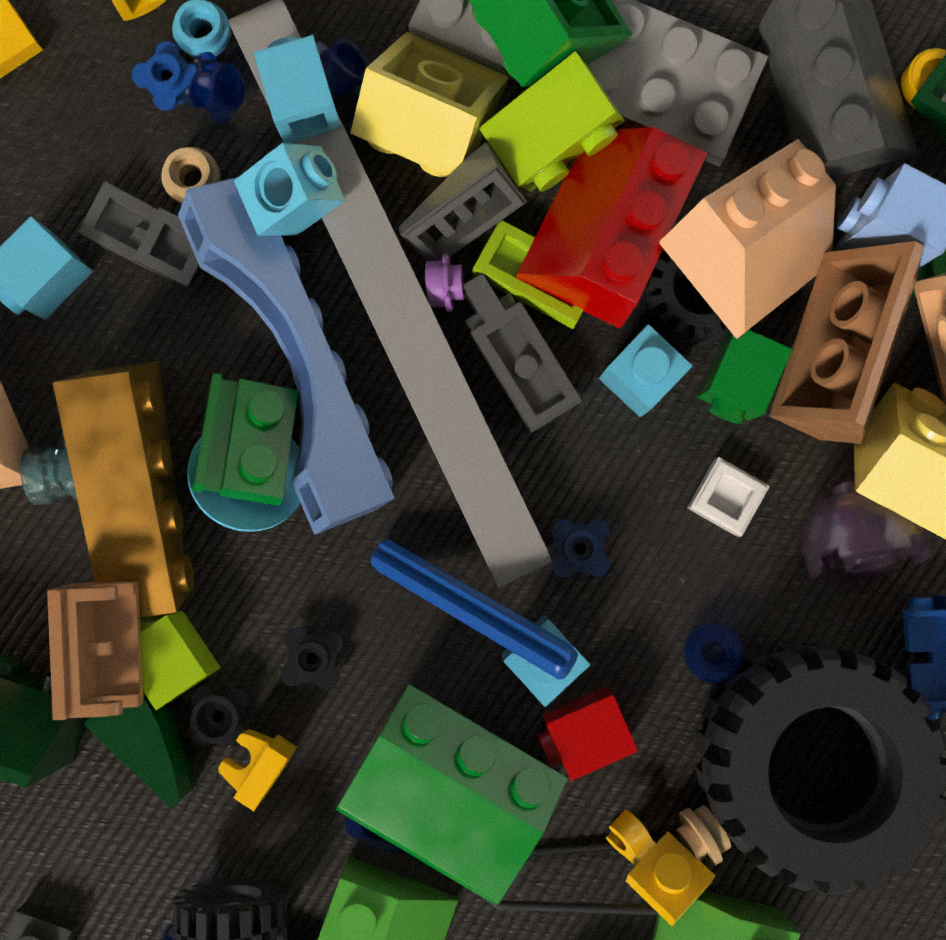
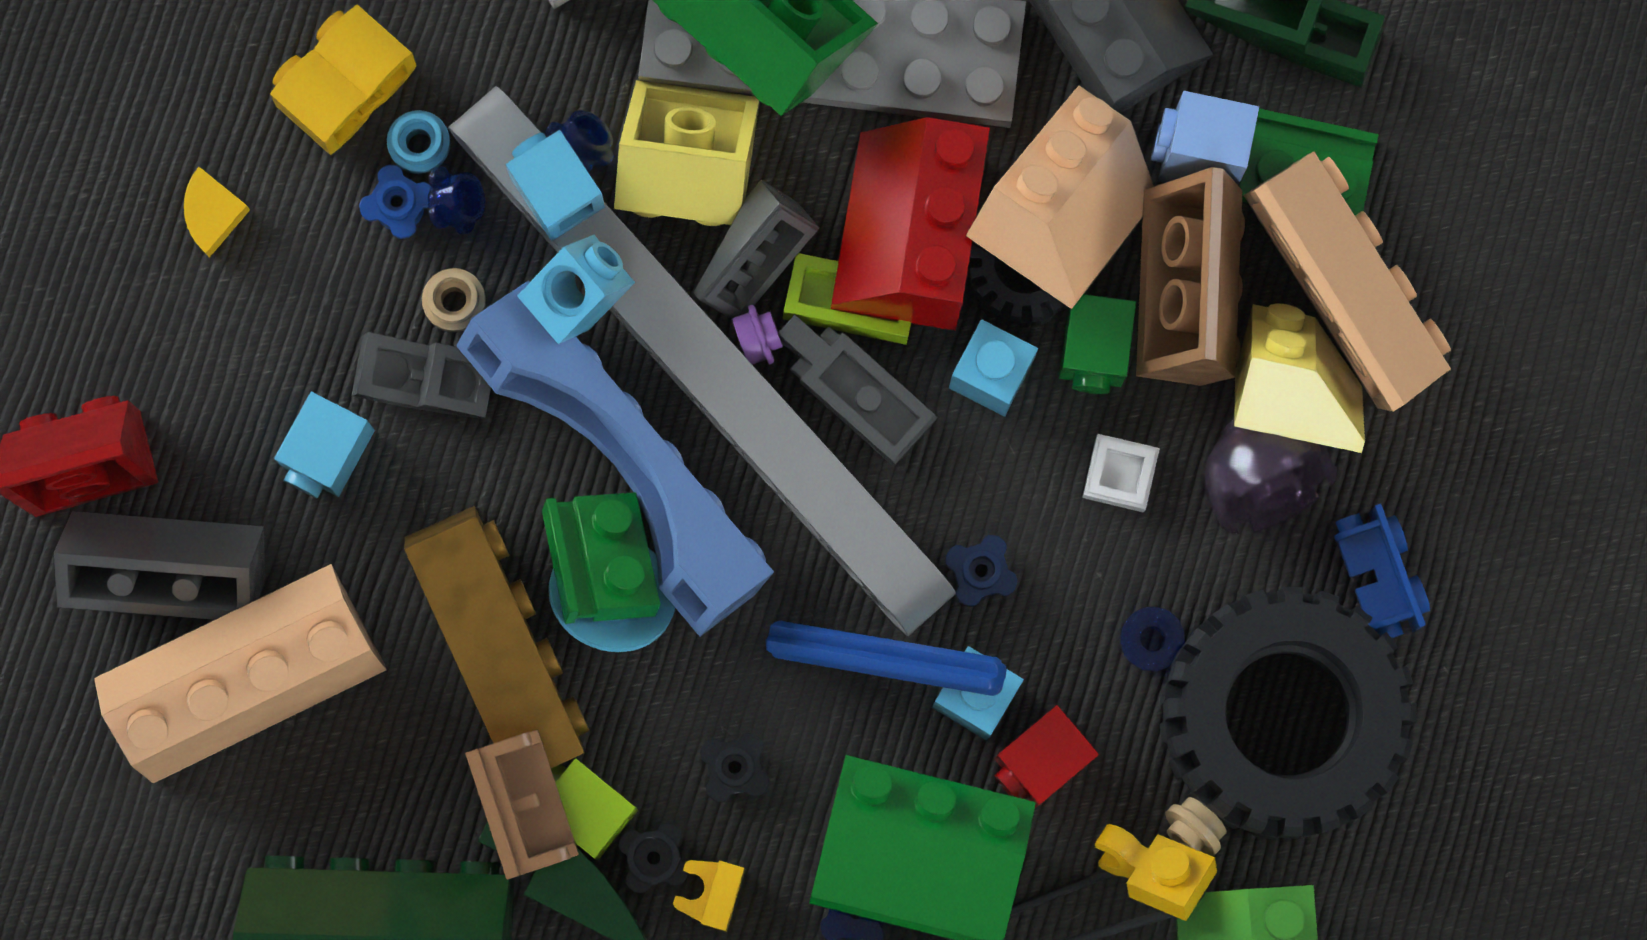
camera: 20 degrees left, 5 degrees down
(46, 475) = (400, 654): clear light blue wheel -> none
(553, 125) = (824, 142): lime brick -> none

